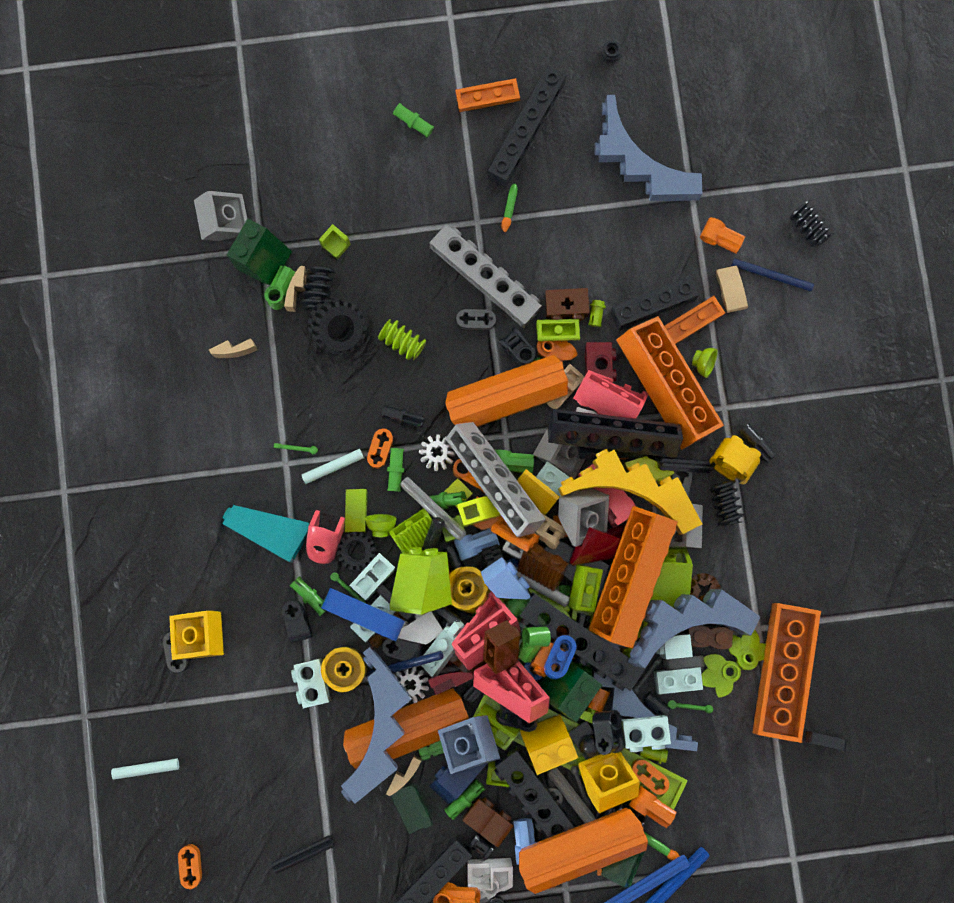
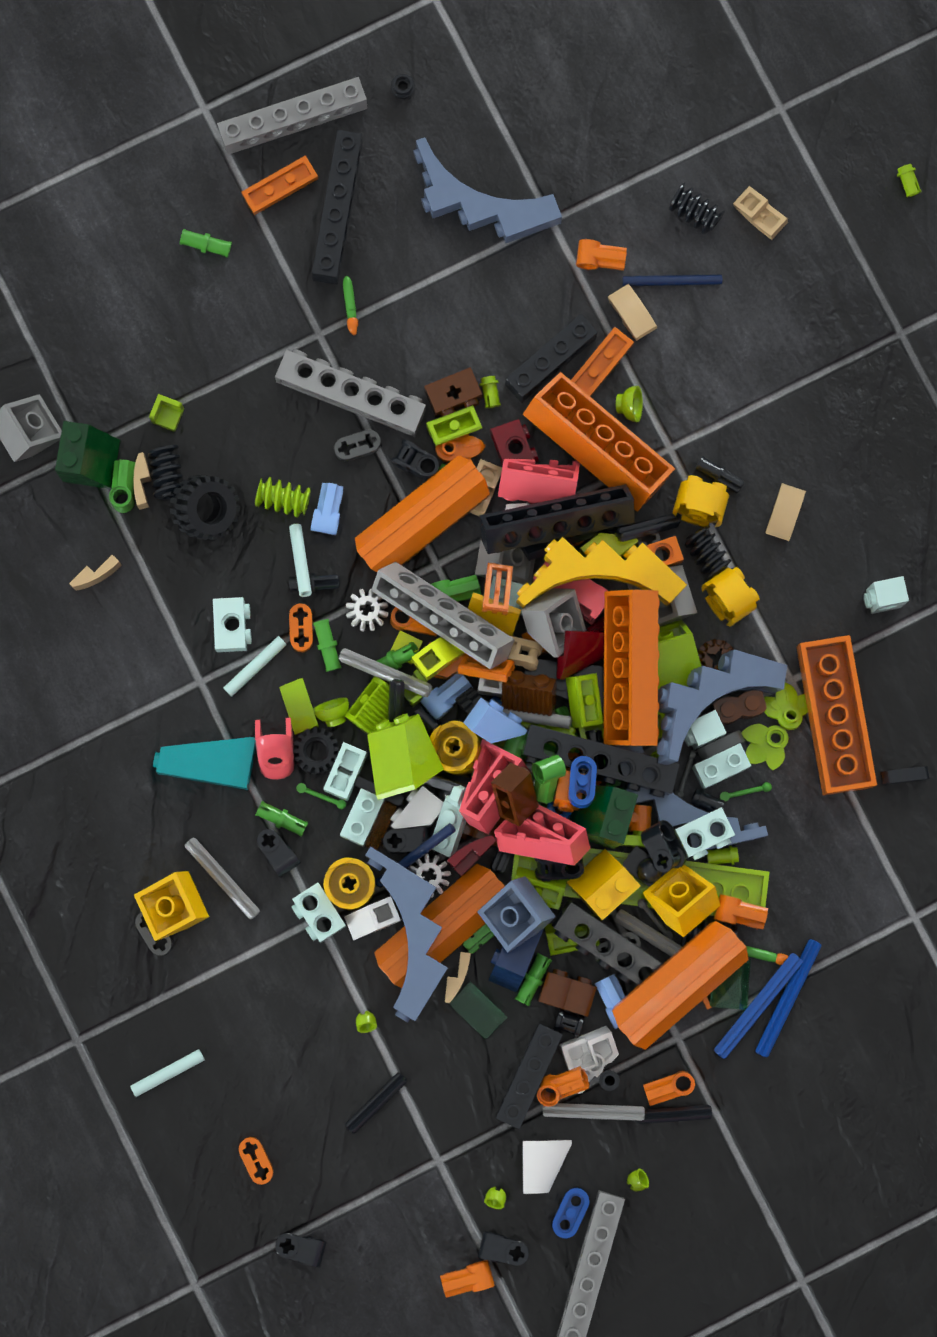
camera: 25 degrees left, 0 degrees up
(245, 627) = (222, 878): none -> light grey axle
(313, 450) = (225, 656): bright green hinge -> none
(318, 785) = (366, 1022): none -> lime hinge
(322, 414) = (227, 609): none -> light aqua brick
(352, 703) = (372, 918): none -> white slope
(363, 614) = (329, 814): blue beam -> none
(398, 393) = (300, 560): none -> light aqua piece
(431, 367) = (327, 514): none -> light blue piece
(516, 44) = (292, 115): none -> light grey brick
(539, 487) = (495, 607): none -> orange tile
(647, 780) = (728, 875): orange beam -> none
(699, 488) = (672, 547): none -> orange brick
(733, 544) = (730, 596): none -> yellow brick
(800, 491) = (785, 512): none -> tan slope
(860, 245) = (760, 213): none -> tan slope
(861, 588) = (886, 595): none -> light aqua brick

